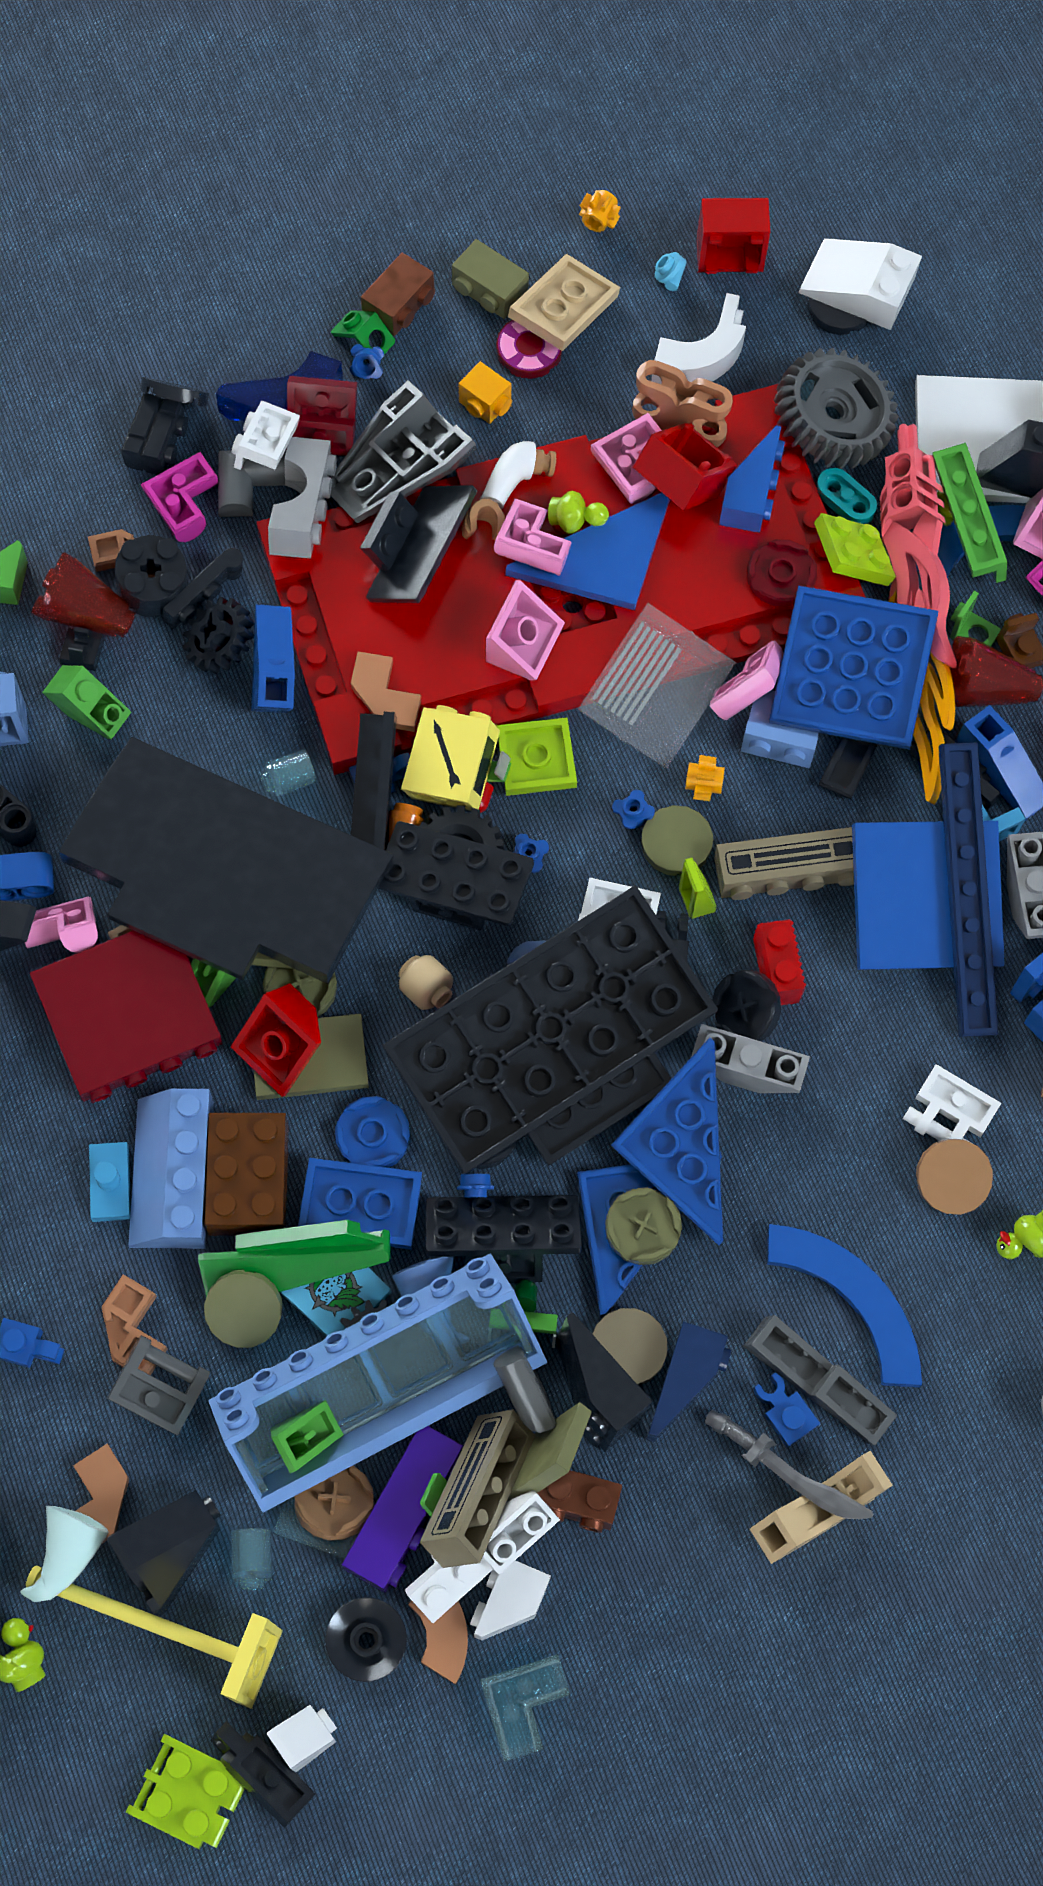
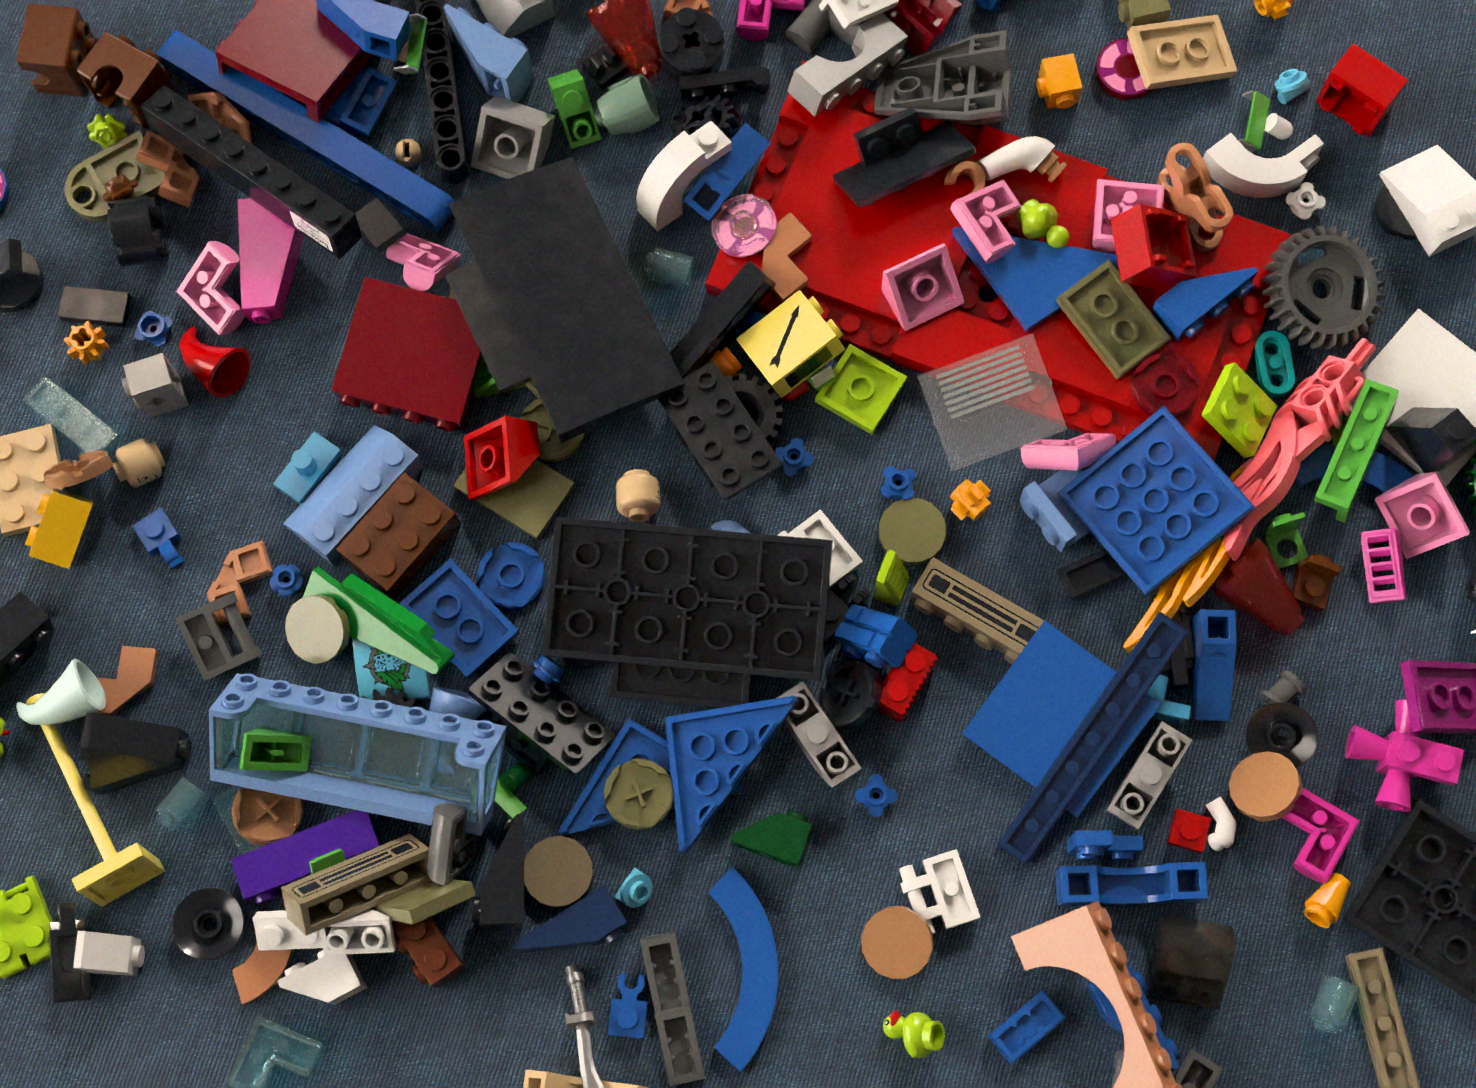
camera: 45 degrees right, 5 degrees up
(54, 767) = (511, 138): none -> light grey slope
(136, 666) = (628, 106): none -> sand green helmet
(175, 1301) = (290, 588): none -> blue plate
(230, 687) = (672, 171): none -> white arch
(327, 690) = (744, 225): none -> clear tile
(672, 316) = (1259, 122): none -> piece
(697, 548) = (1113, 319): none -> olive tile
(705, 1307) = (635, 889): none -> medium azure plate
(727, 943) = (875, 637): none -> blue brick
(759, 361) = (1302, 209): none -> white plate
(788, 1171) = (776, 838): none -> dark green slope
(826, 1082) = (875, 806): none -> blue plate

